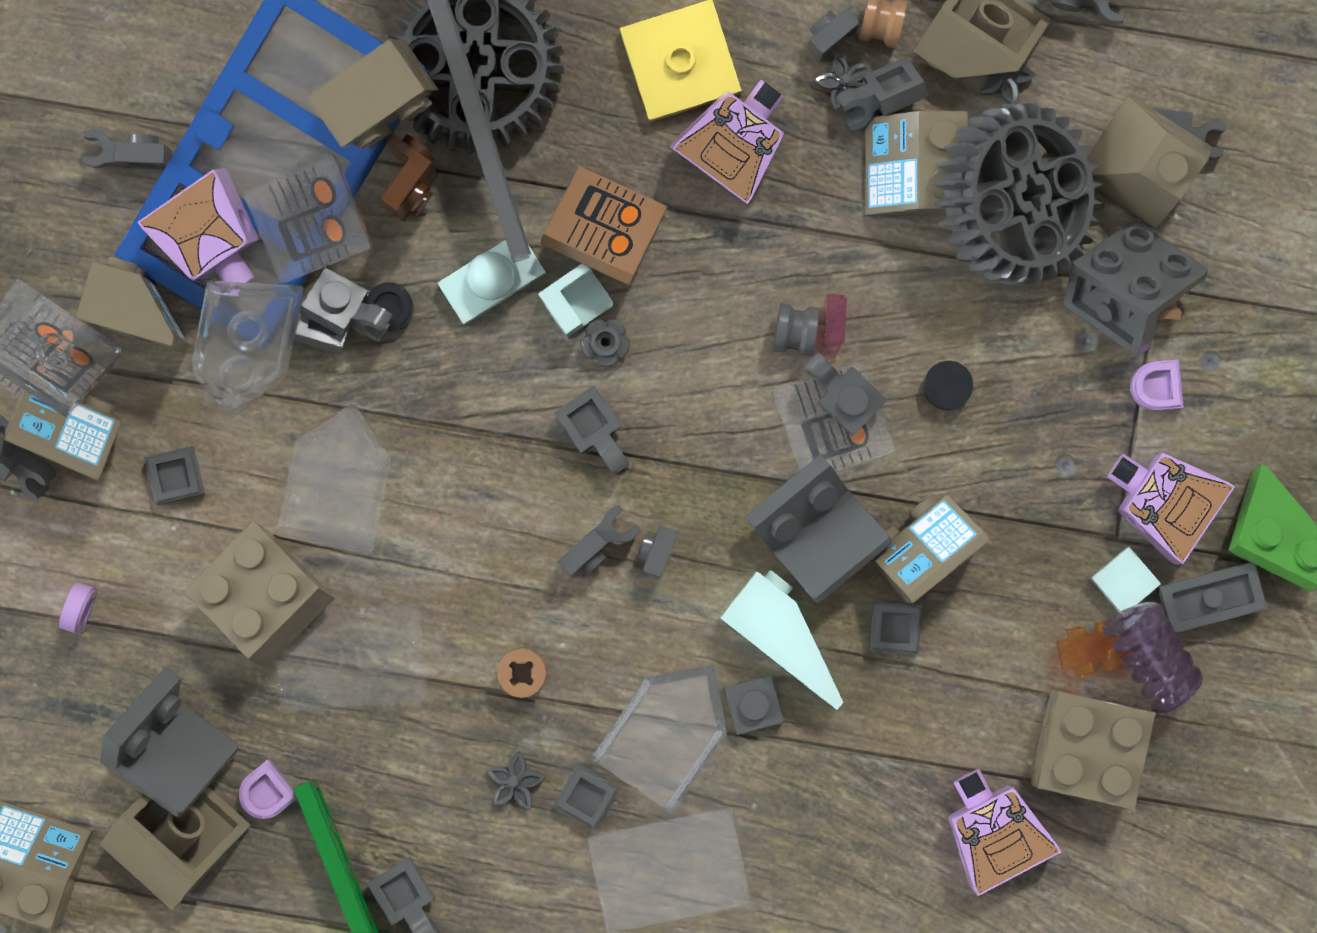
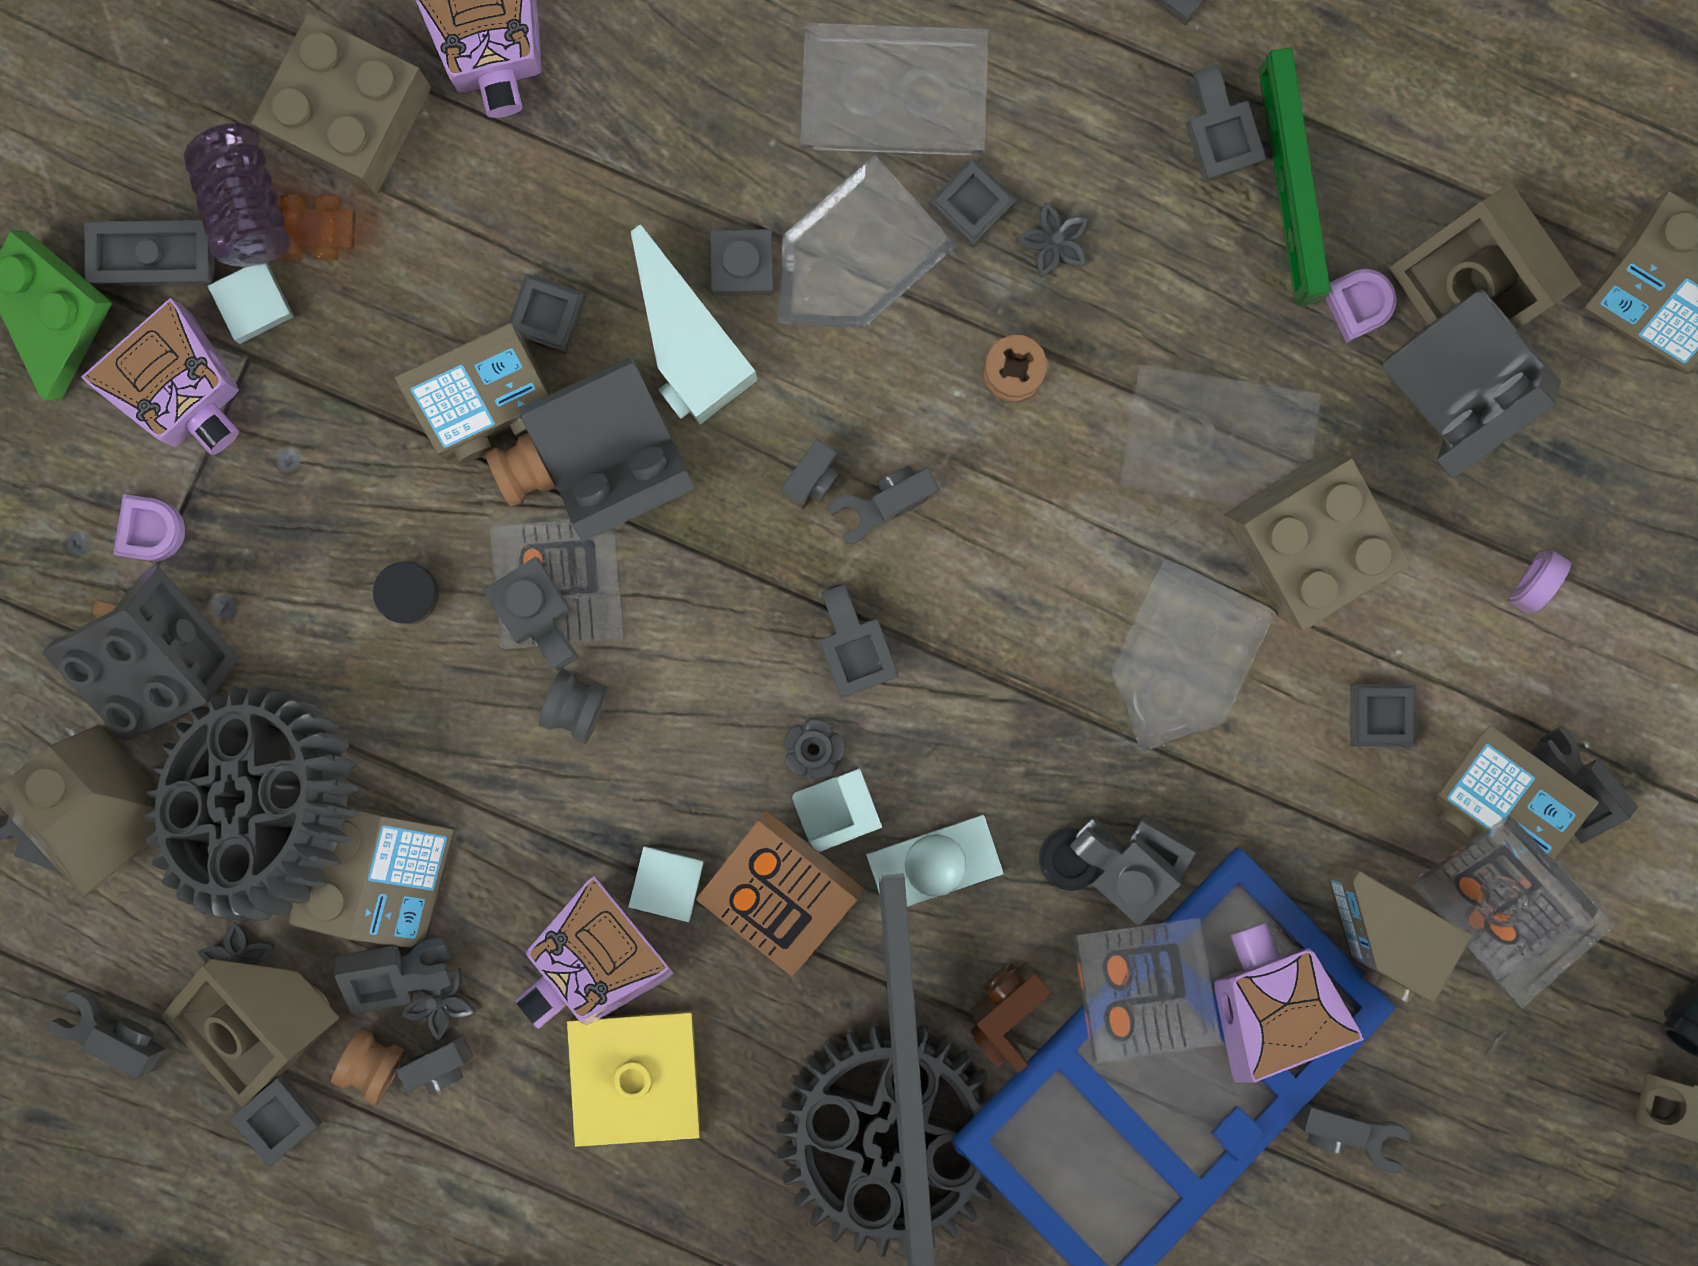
camera: 155 degrees left, 0 degrees up
(244, 340) = (1260, 860): clear tile -> none
(374, 94) = (1029, 1128): dark tan brick -> none
(692, 212) = (666, 883): none -> light aqua tile
(834, 320) = (524, 705): clear pink tile -> none
(883, 499) = (519, 470): none -> medium nougat wheel

